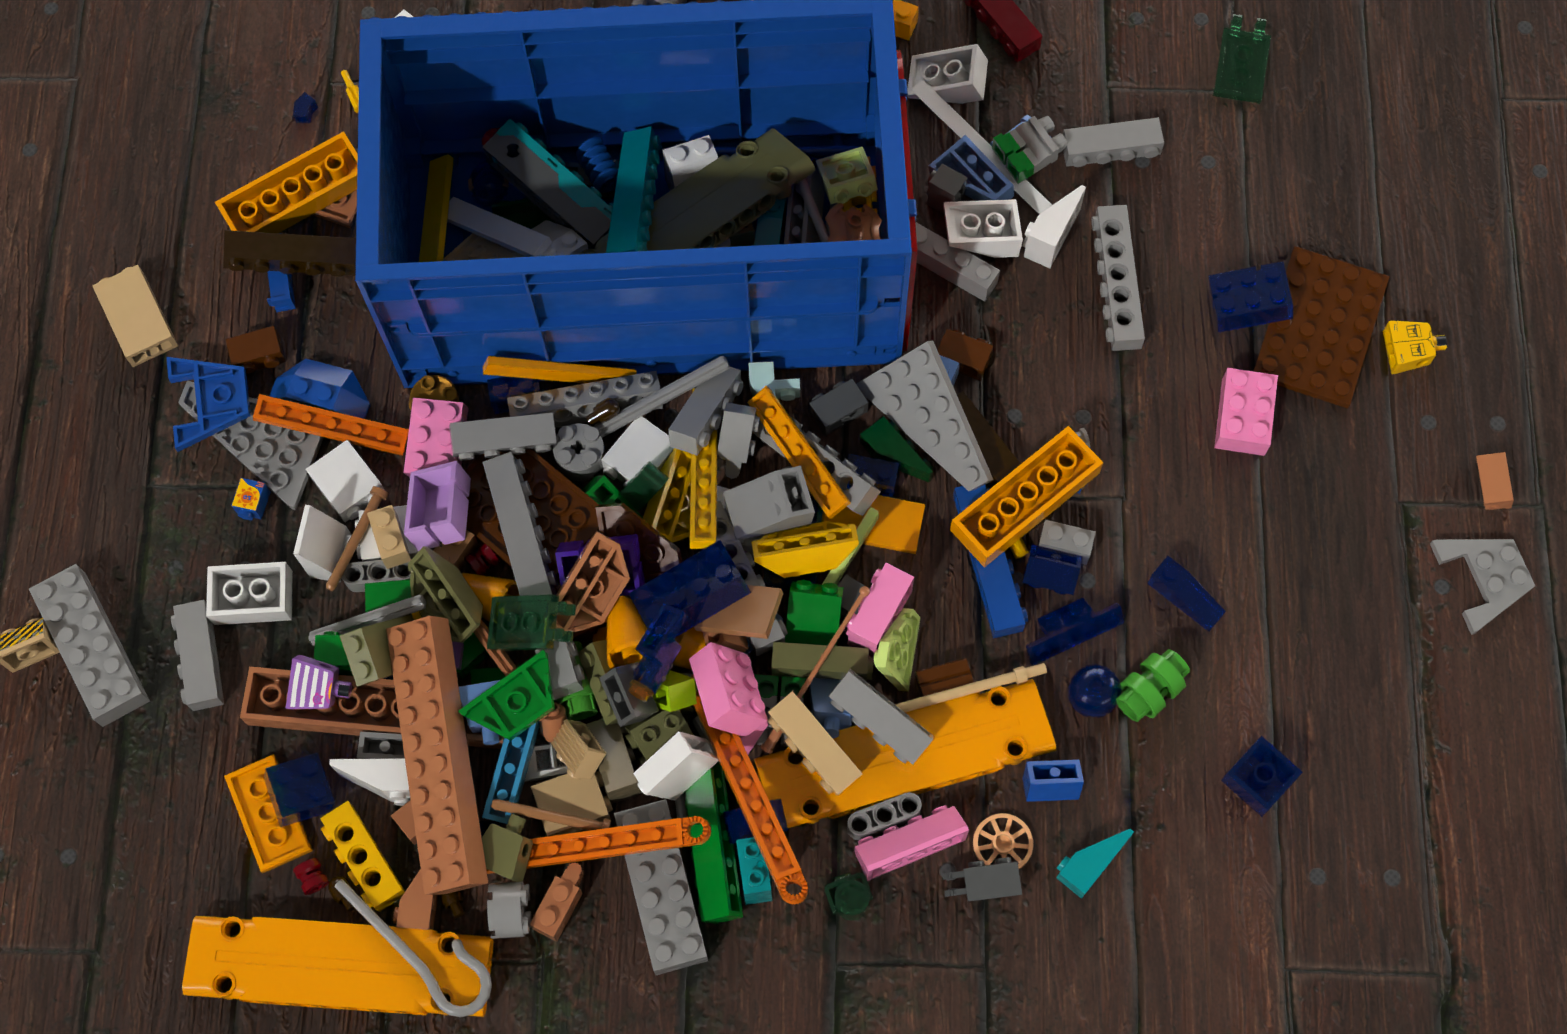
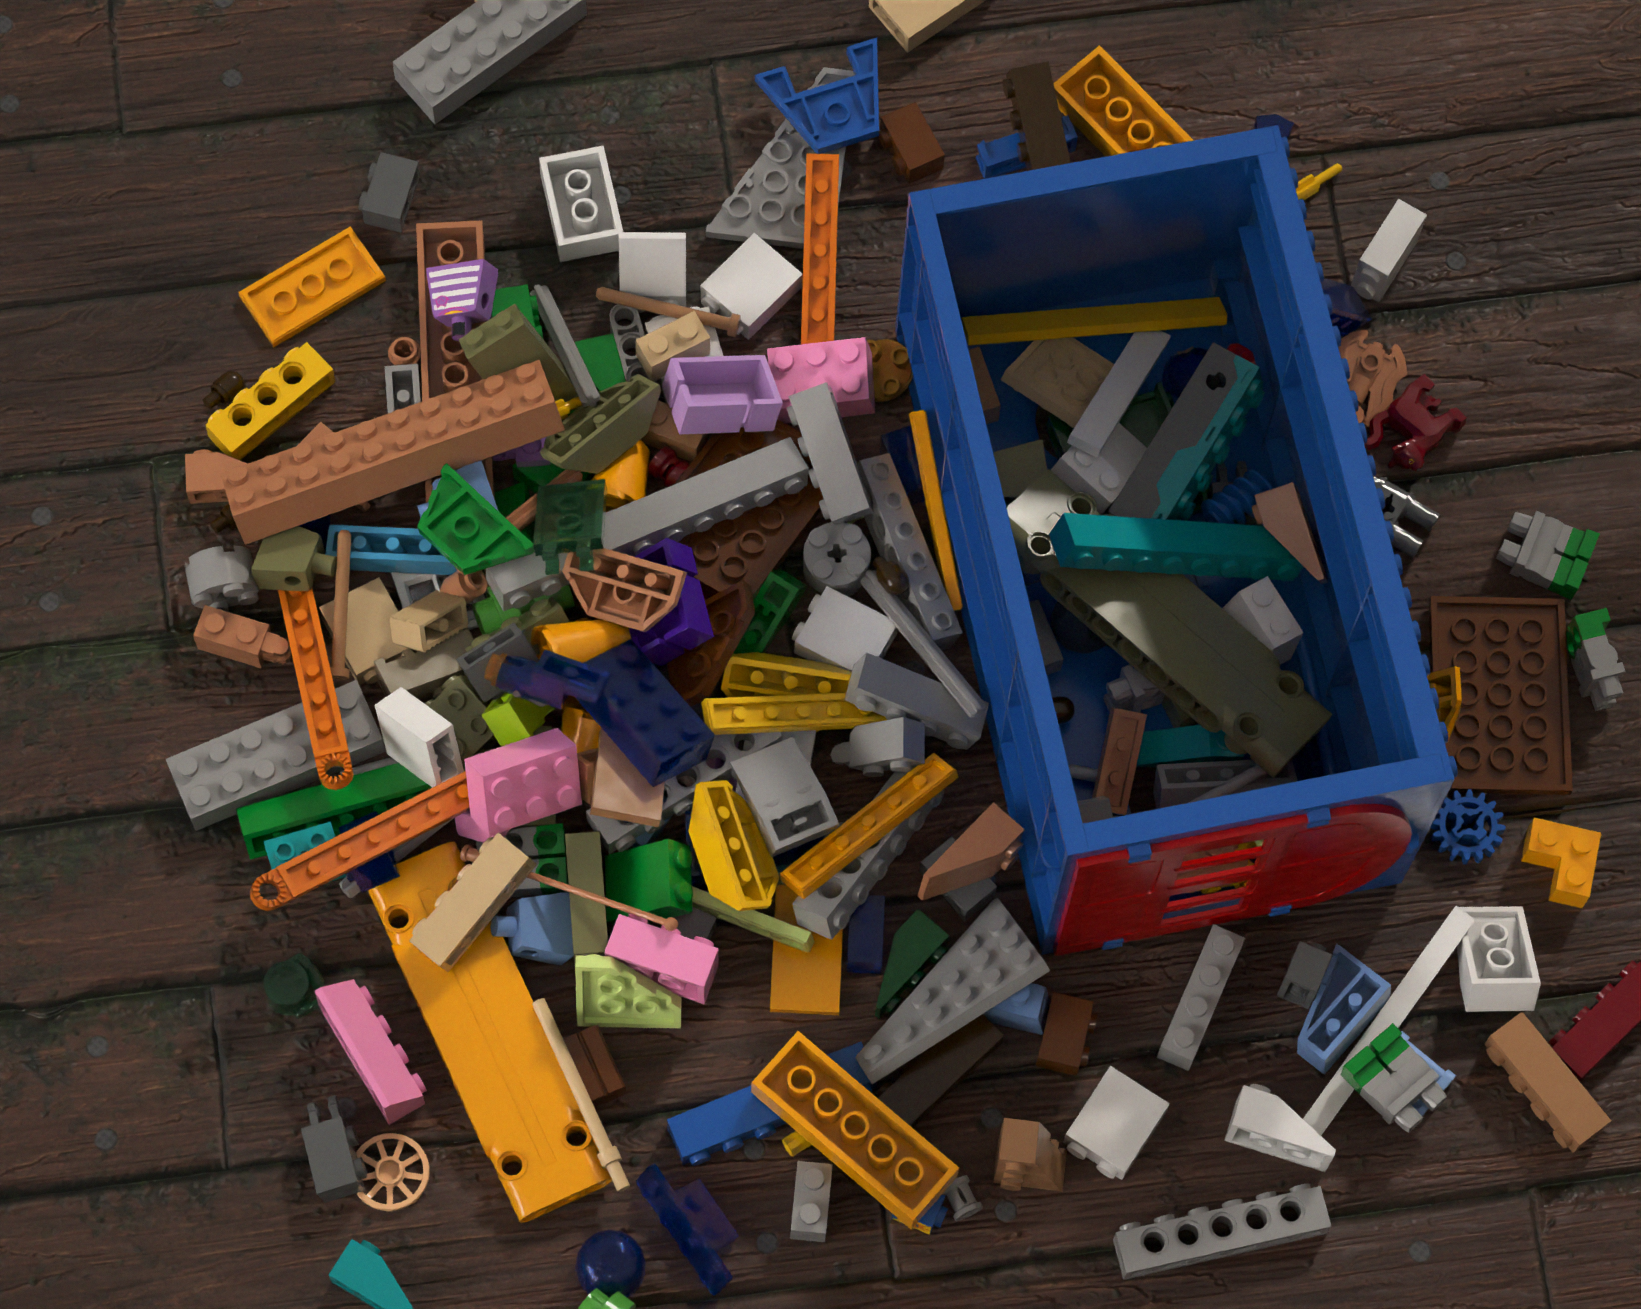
camera: 75 degrees right, 0 degrees up
(197, 655) = (492, 164): light grey brick -> none
(202, 739) = (390, 192): none -> dark grey brick
(250, 499) = (707, 179): brick -> none
(299, 789) = (339, 311): clear blue brick -> none
(311, 876) = (238, 349): dark red wheel -> none
(323, 388) = (869, 235): blue wedge -> none
(328, 965) = (134, 404): light orange panel -> none
(347, 742) = (404, 351): none -> nougat cone
(380, 776) = (363, 392): white slope -> none
(421, 968) = (142, 485): light grey piece -> none
(624, 128) = (1287, 521): none -> nougat slope
(644, 485) = (792, 640): clear green beam -> none
(762, 375) = (977, 776): light aqua brick -> none
(828, 377) = (976, 854): none -> nougat slope
(881, 717) = (519, 979): light grey brick -> none
(893, 806) = (399, 998): light grey beam -> none
(984, 227) = (1255, 1030): white slope -> none
(1033, 332) = (1115, 1124): none -> white brick
(1040, 59) = (1546, 1083): none -> medium nougat brick
(1052, 570) = (767, 1186): clear blue brick -> none
(1052, 780) = (475, 1219): blue brick -> none
(1056, 393) = (1028, 1157): none -> medium nougat wedge
(1113, 142) = (1435, 1201): light grey brick -> none

